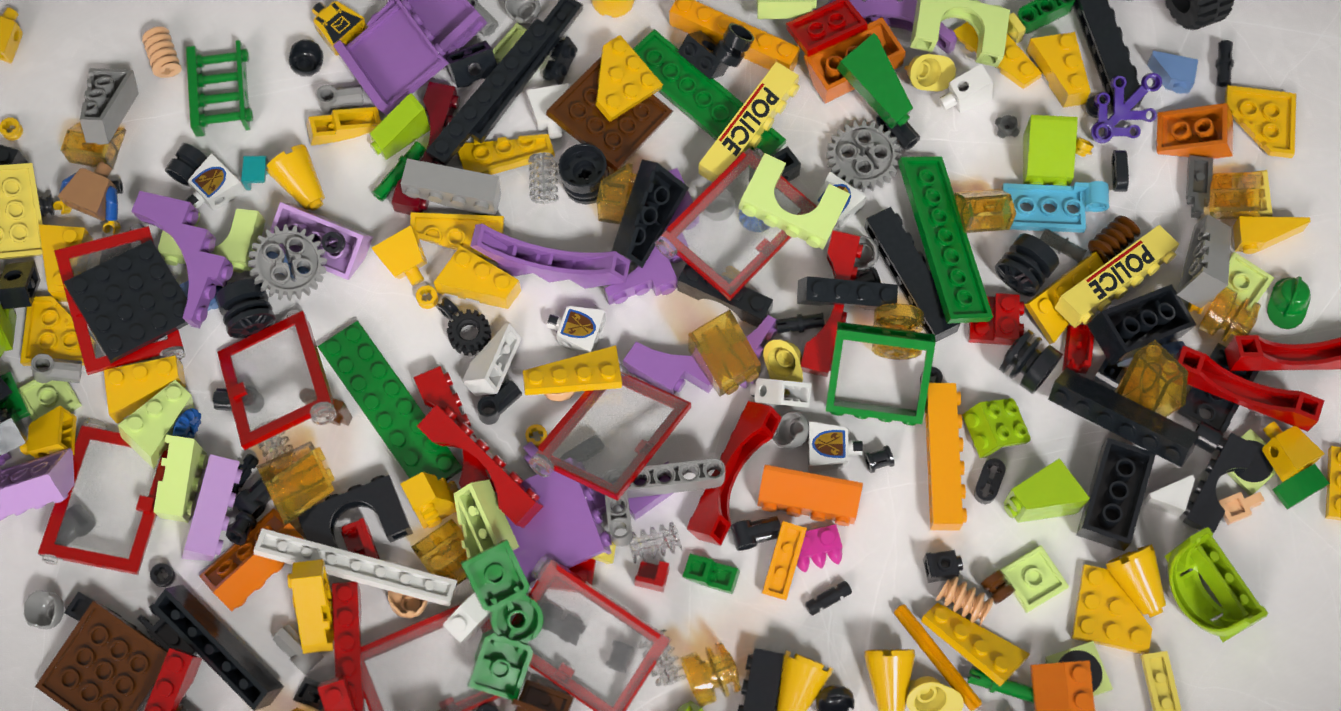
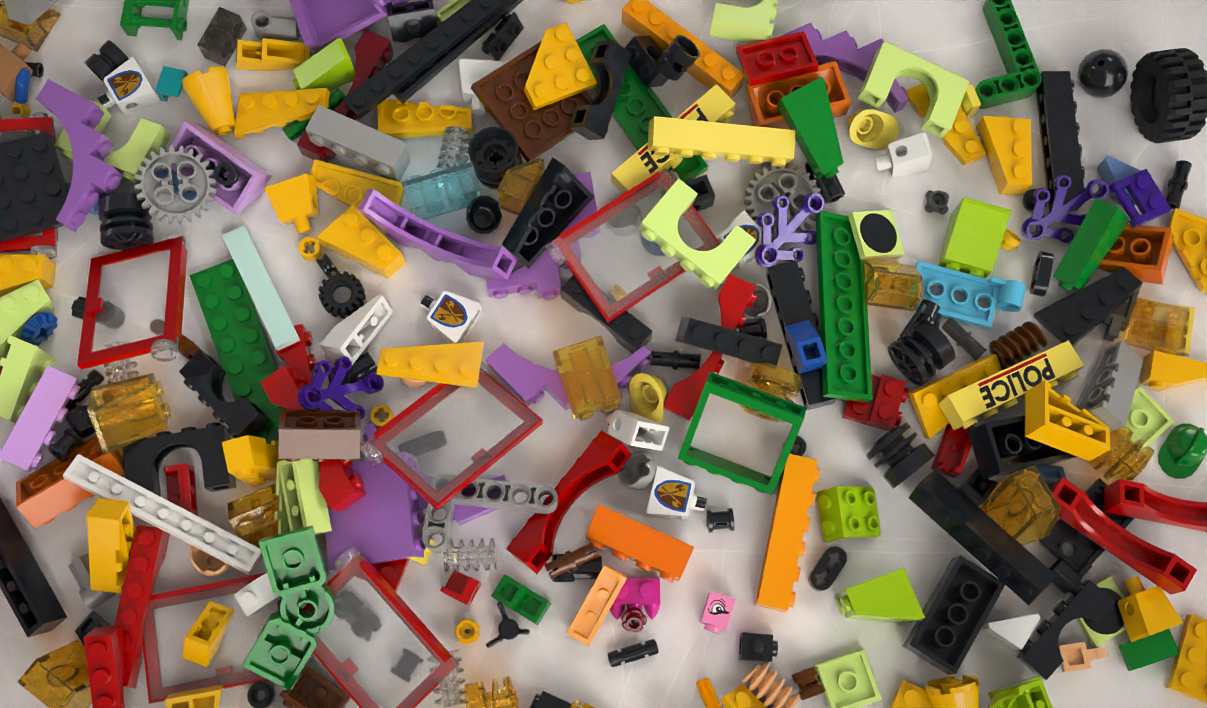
camera: 10 degrees right, 5 degrees up
(291, 117) = (221, 36): none -> clear smoke brick
(355, 175) = (276, 108): none -> yellow wing
(361, 435) = (206, 377): none -> black arch
(391, 342) = (261, 288): none -> light aqua tile
(424, 669) = (206, 634): none -> yellow arch
(472, 424) = (335, 390): none -> dark purple plant
(490, 457) = (319, 435): none -> slope
(543, 213) = (442, 190): none -> clear light blue slope
(585, 229) = (483, 215): none -> black hair
(668, 620) = (465, 638): none -> yellow plate
(671, 64) = (610, 65): none -> black arch
(706, 601) = (507, 629): none -> black plant
(751, 523) = (571, 560): none -> reddish brown pin
(794, 111) = (721, 140): none -> light yellow brick
(820, 561) = (633, 614): none -> dark red plate
(874, 181) = (785, 230): none -> plant
(897, 542) = (717, 612): none -> bright pink brick
(920, 282) = (806, 346): none -> blue slope
(958, 168) = (876, 234): none -> tile
(1022, 225) = (928, 311): none -> black plant
(1158, 134) = (1090, 245): none -> green slope
(1169, 192) = (1085, 309): none -> black wing
(1171, 299) = (1062, 425): none -> yellow wedge
(1196, 78) = (1145, 195): none -> dark purple plate

